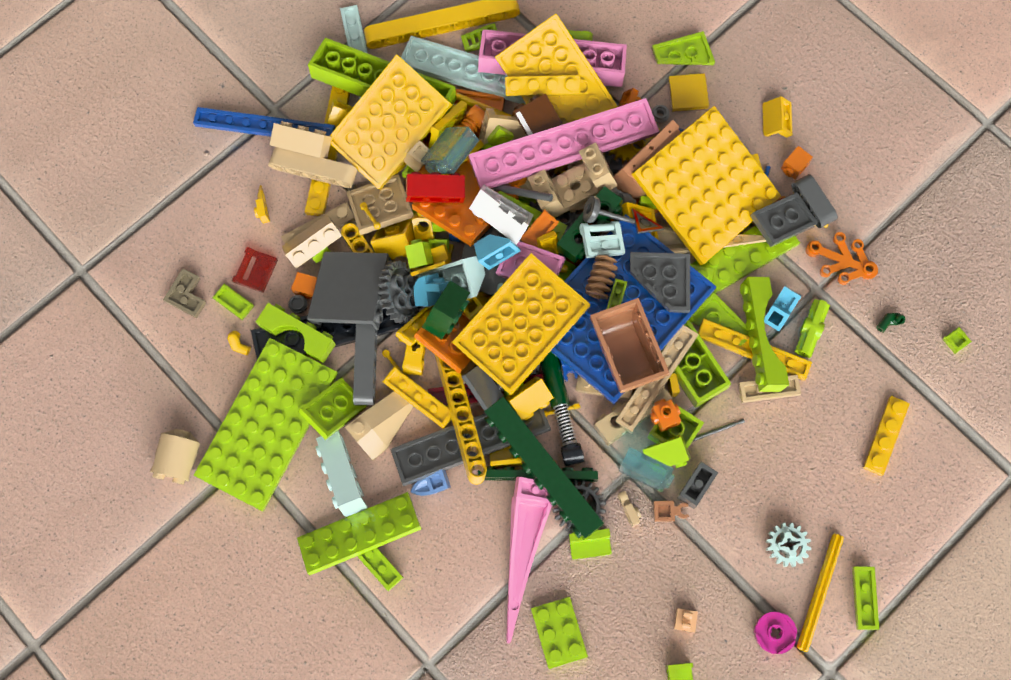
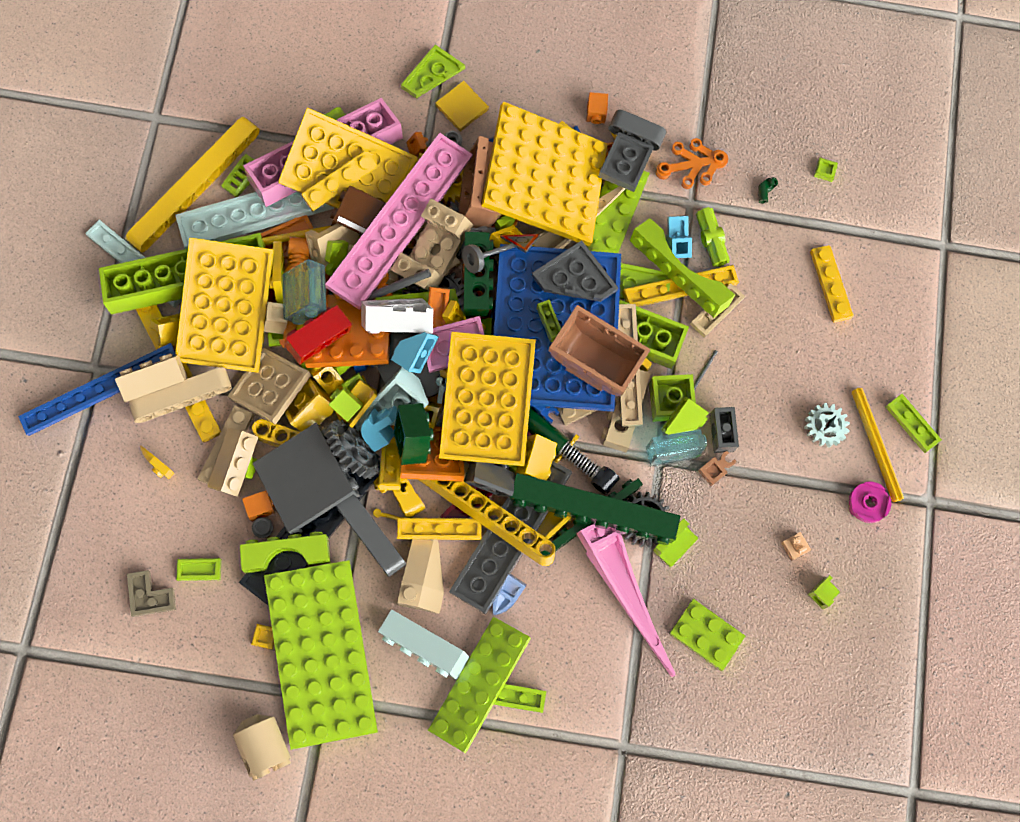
camera: 55 degrees left, 0 degrees up
(235, 344) = (233, 605): yellow arm -> none
(237, 381) = (263, 637): none -> yellow tile
(260, 271) = (203, 524): clear red plate -> none
(331, 409) = (372, 595): lime plate -> none
(363, 206) = (257, 397): yellow hinge -> none
(600, 277) = (523, 311): medium nougat piece -> none
(602, 245) = (505, 282): light aqua plate -> none
(631, 512) = (686, 491): tan plate -> none
(665, 421) = (660, 389): orange brick -> none
(777, 117) = (551, 80): yellow panel -> none

